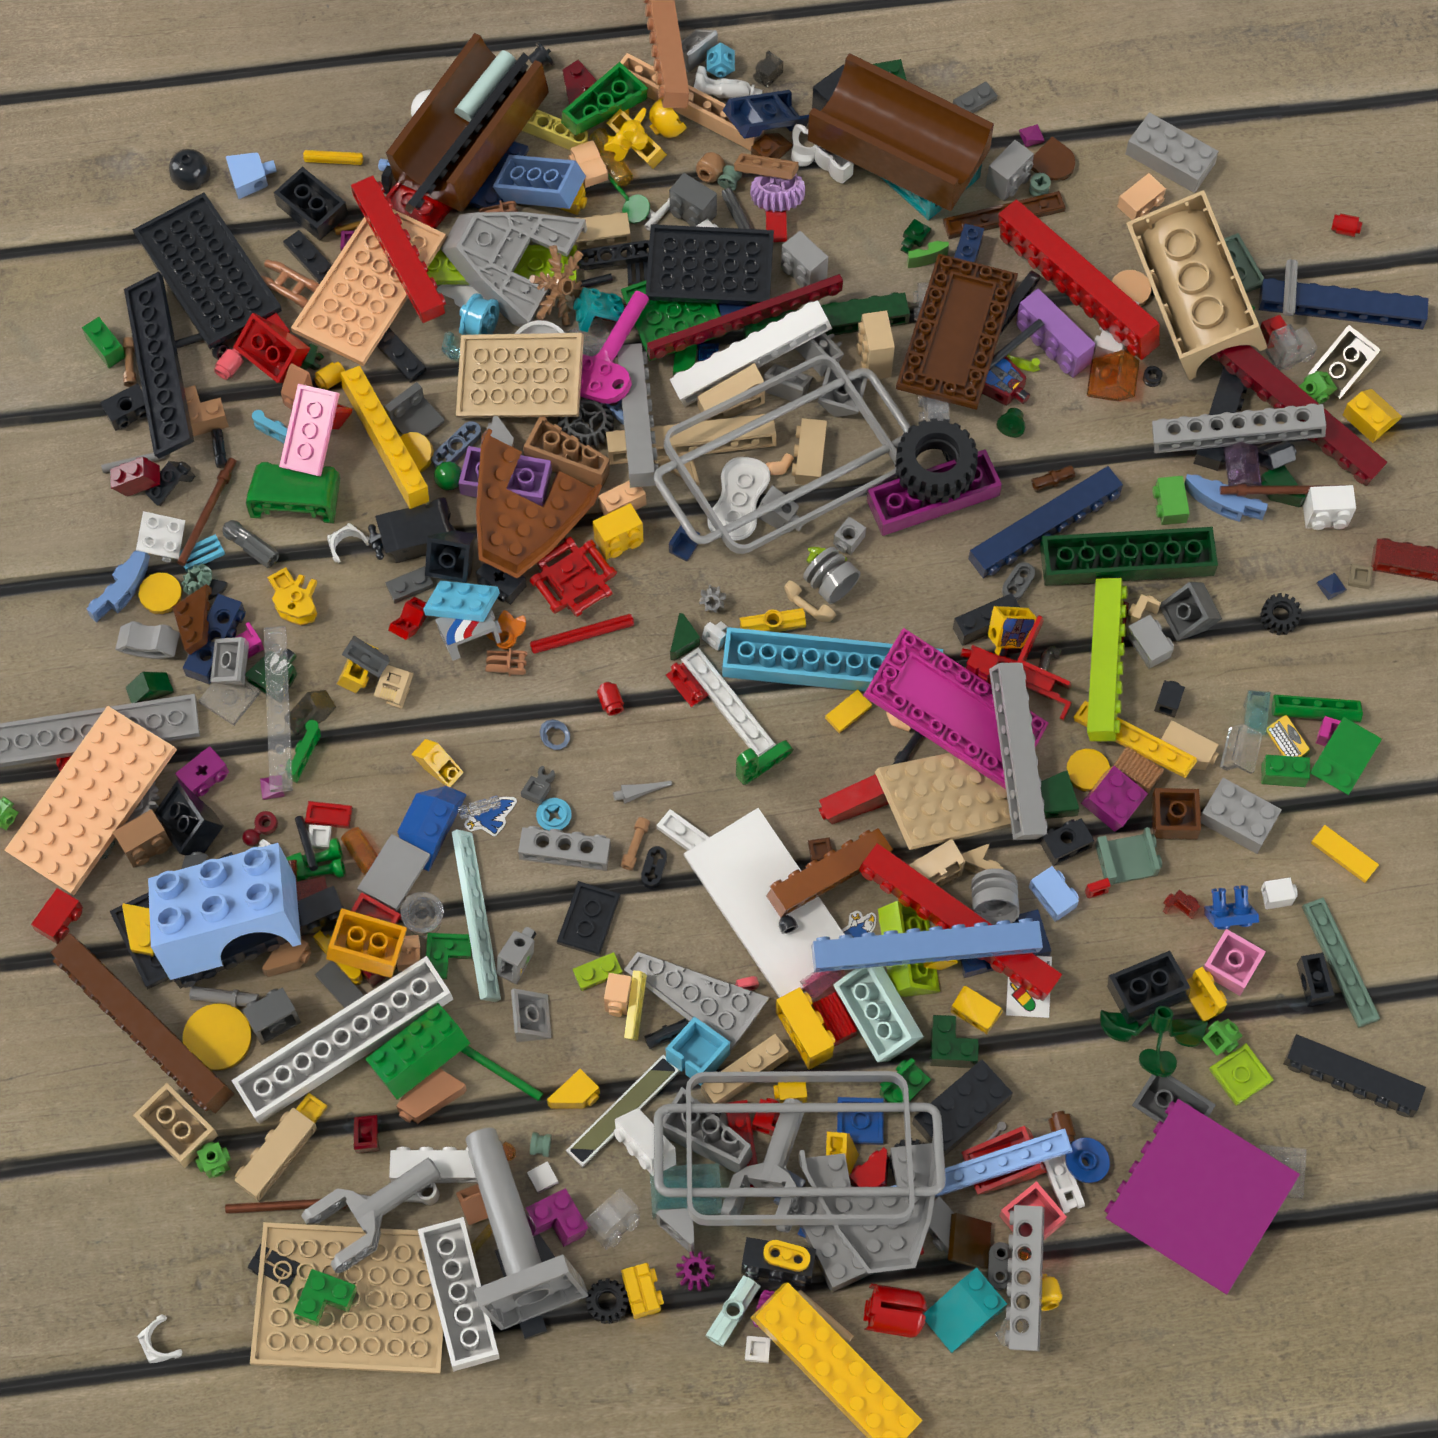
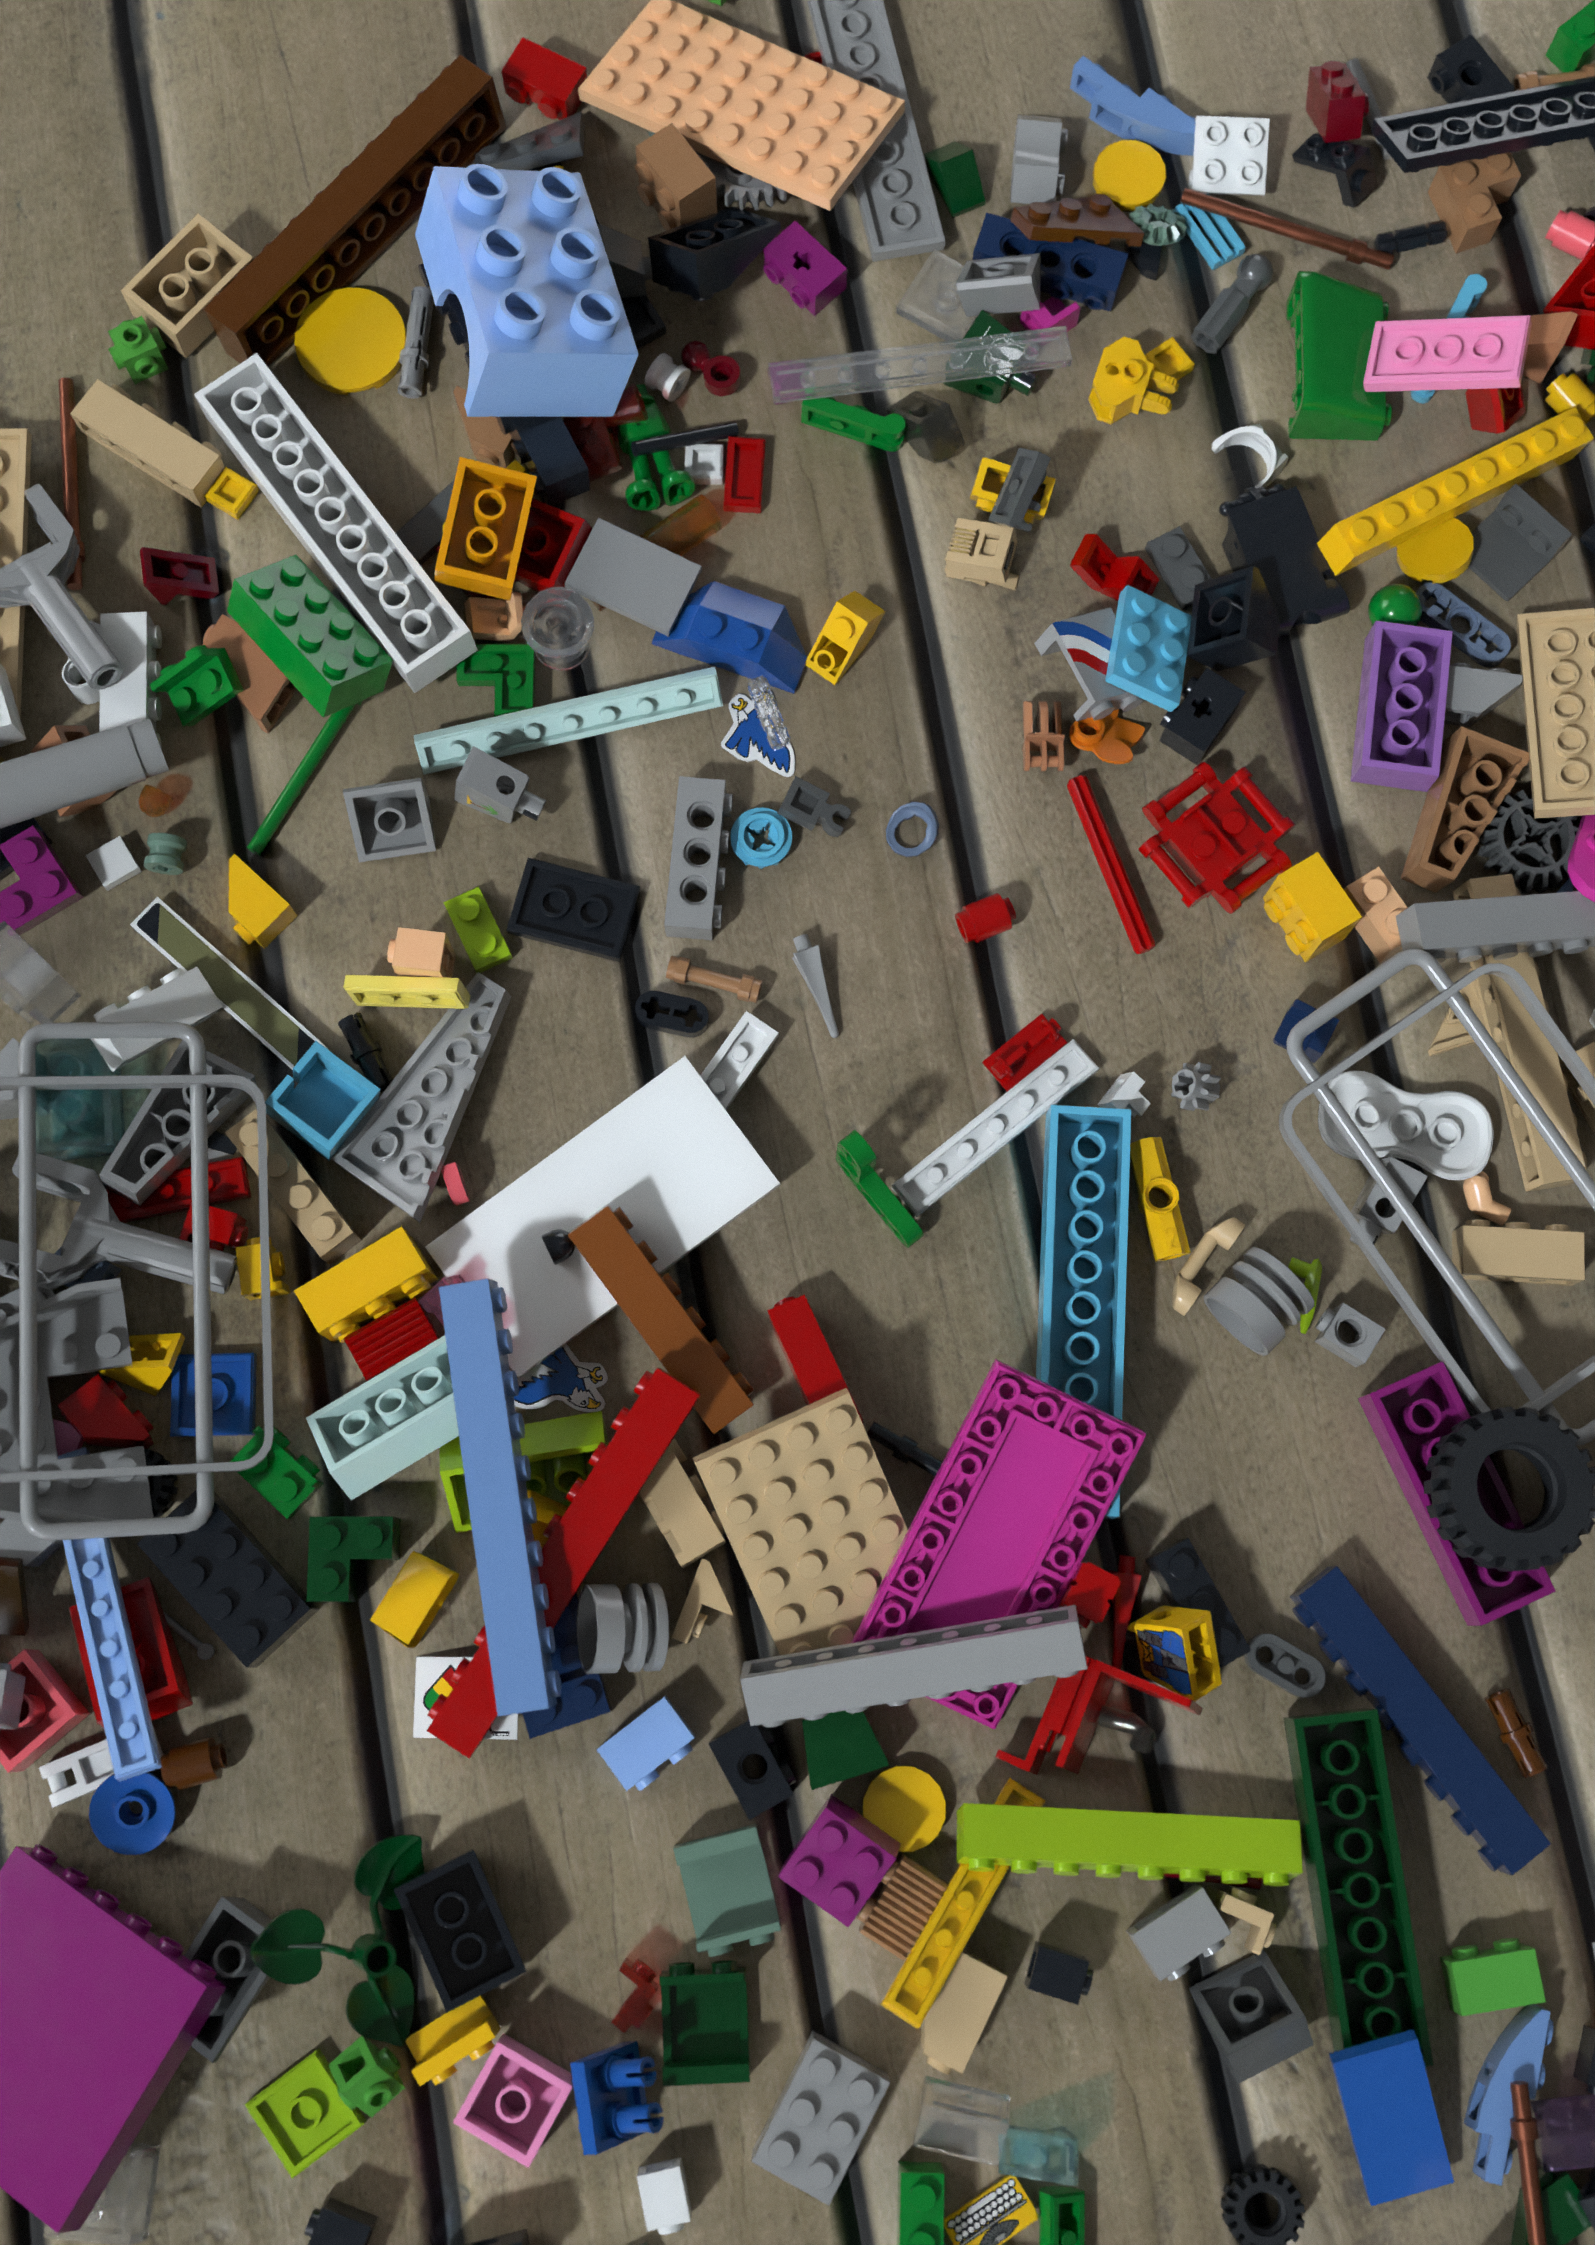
camera: 85 degrees right, 10 degrees up
(104, 923) = (539, 147): none -> dark grey wing
(271, 1015) = (375, 407): dark grey brick -> none
(440, 1119) = (199, 683): none -> green bracket
(513, 529) = (1295, 714): dark orange piece -> none
(684, 638) = (1113, 1039): dark green slope -> none
(819, 848) = (718, 1305): reddish brown tile -> none
(848, 711) = (990, 1340): yellow tile -> none
(1097, 888) = (660, 1828): red tile -> none
(1176, 813) = (815, 1985): reddish brown brick -> none
(1195, 870) = (705, 2024): none -> dark green panel
(1237, 548) = (1391, 2117): none -> blue tile

